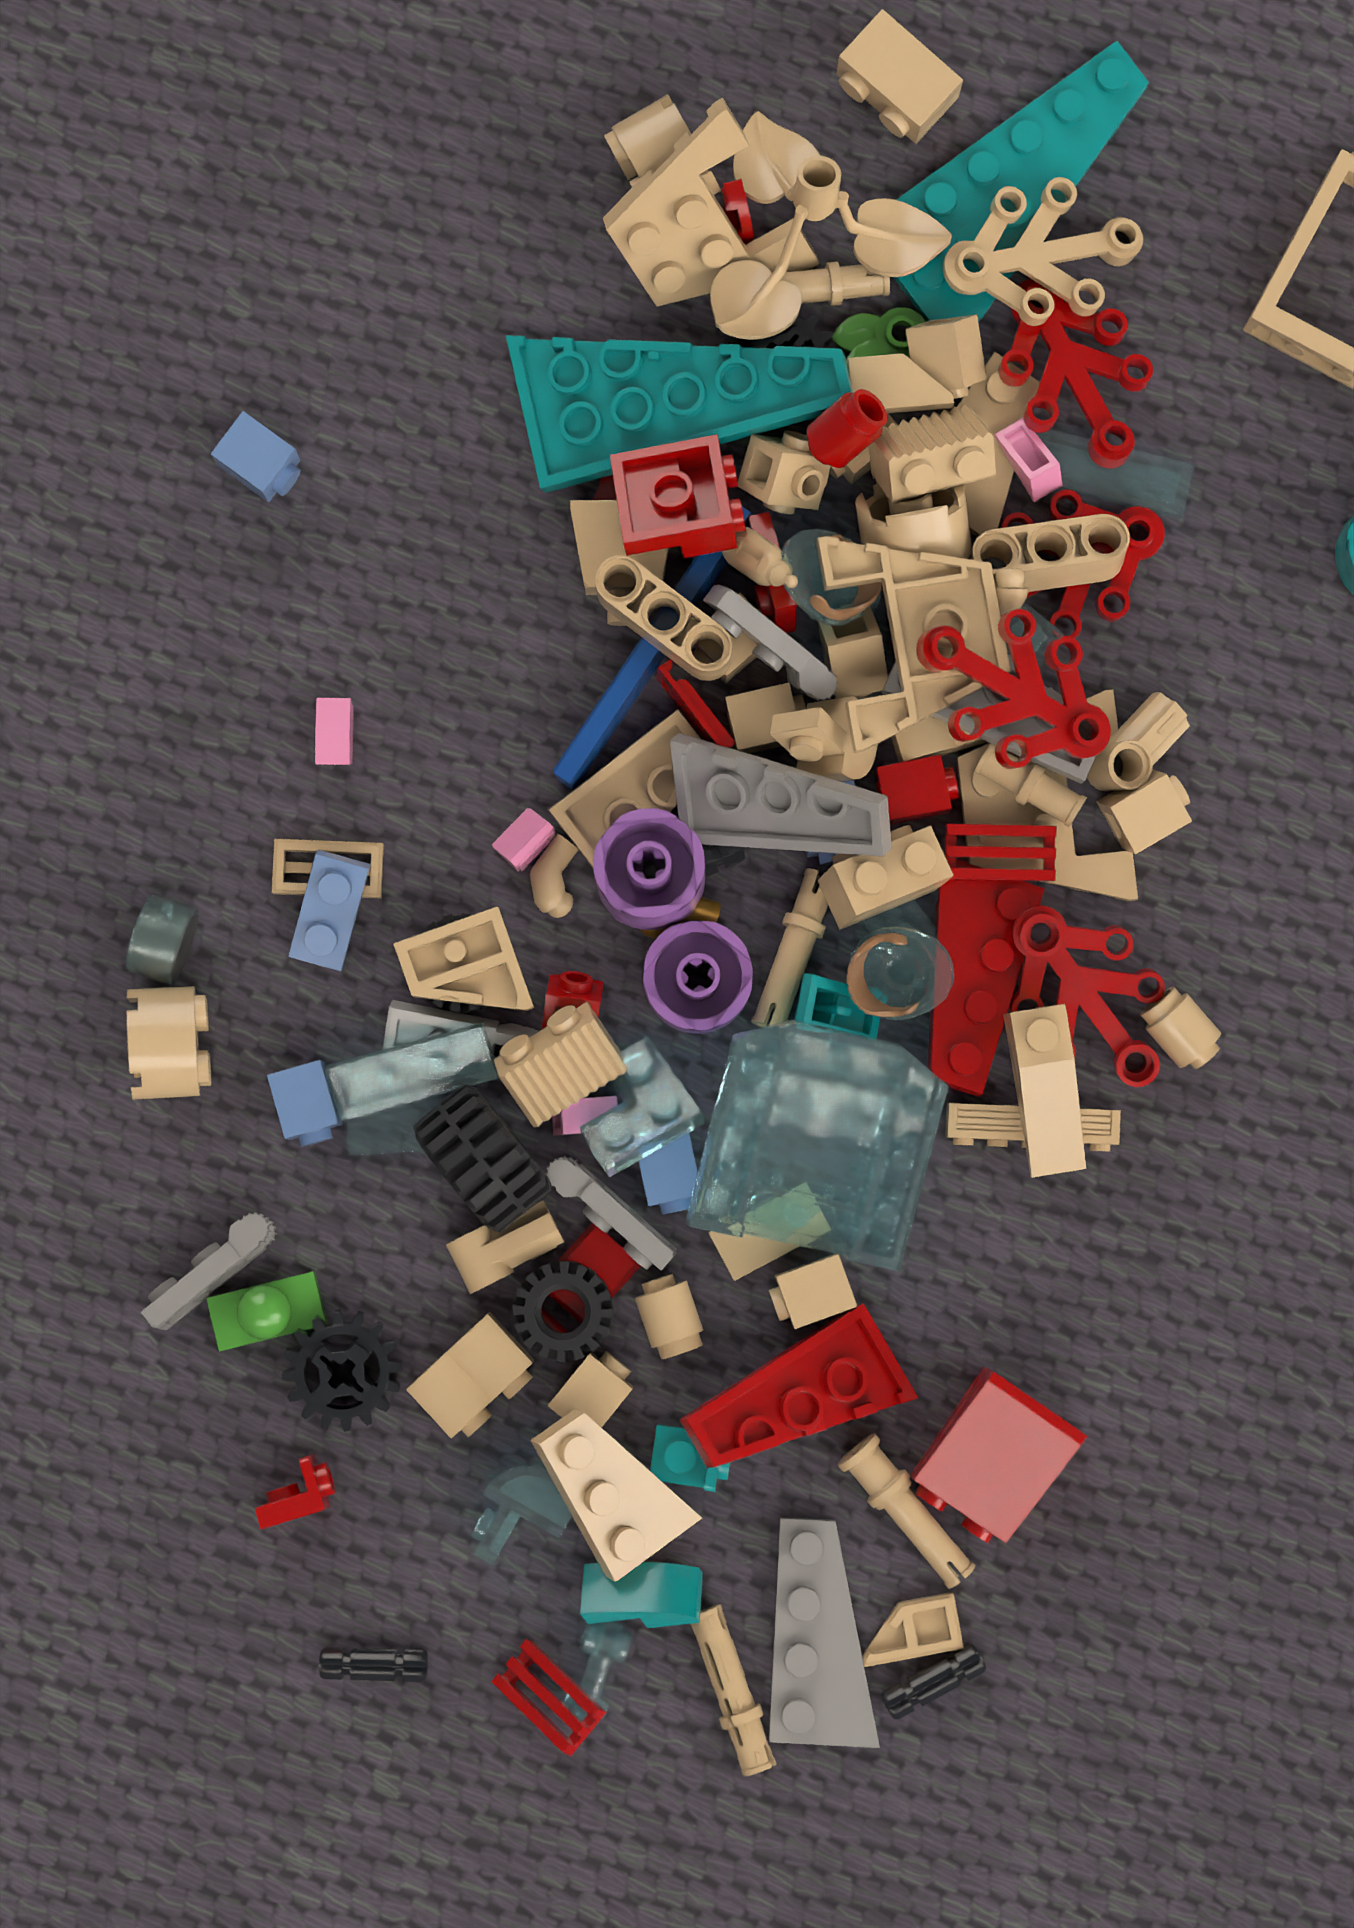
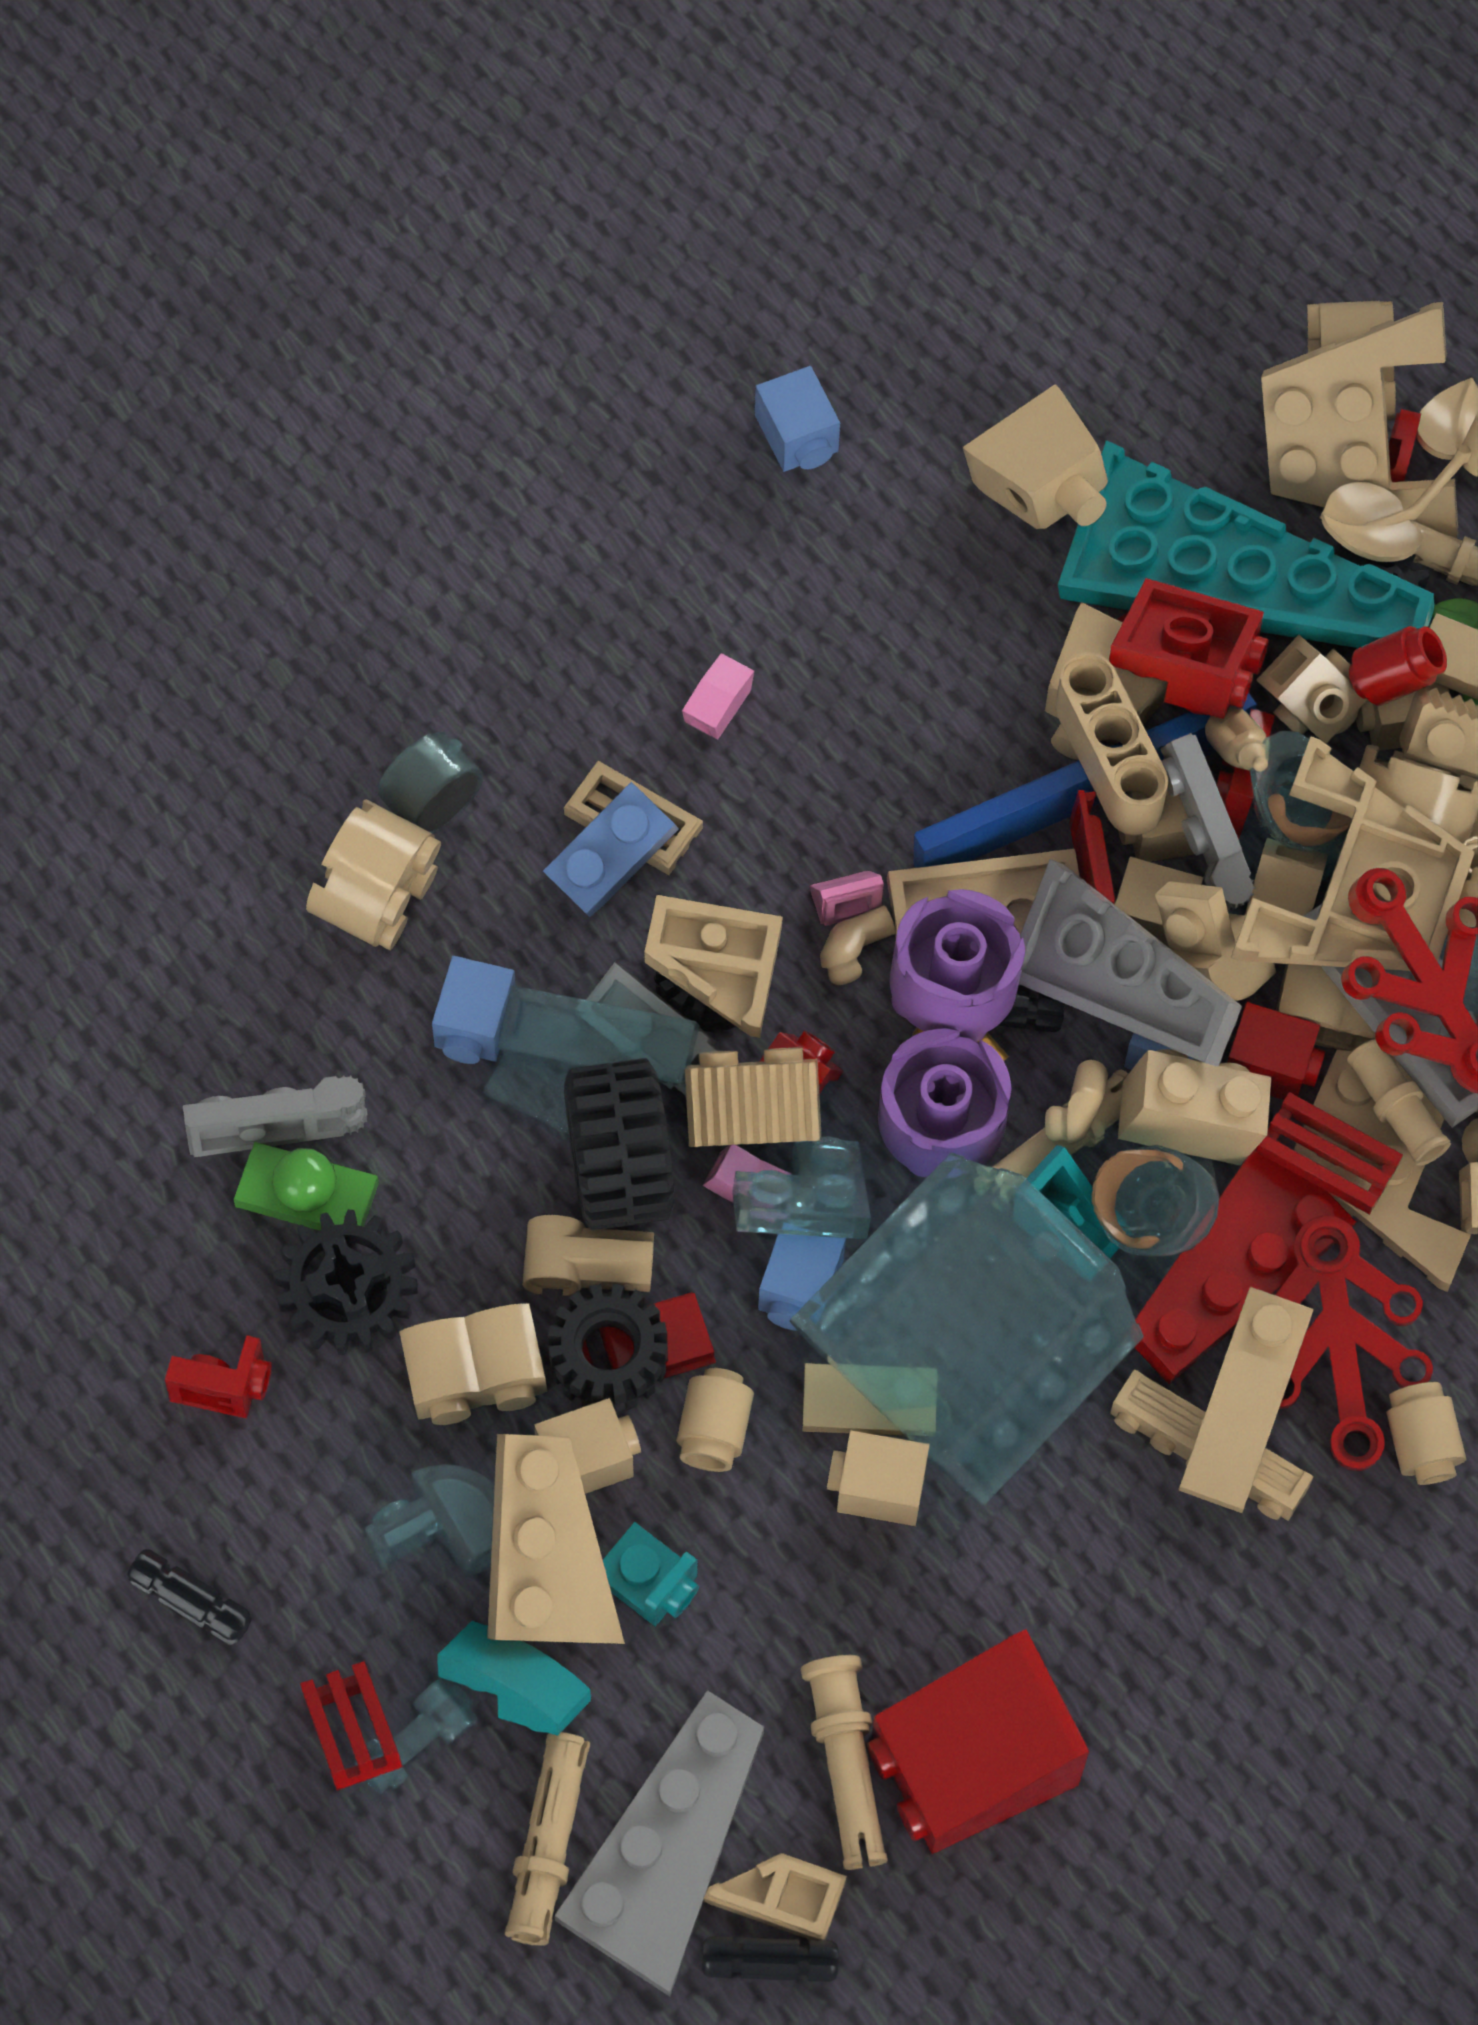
camera: 30 degrees right, 20 degrees down
(471, 391) = (1041, 463): none -> tan torso
(609, 1210) = (715, 1282): light grey hinge -> none
(803, 922) = (1086, 1097): none -> tan arm
(813, 1385) = (816, 1564): red wing -> none

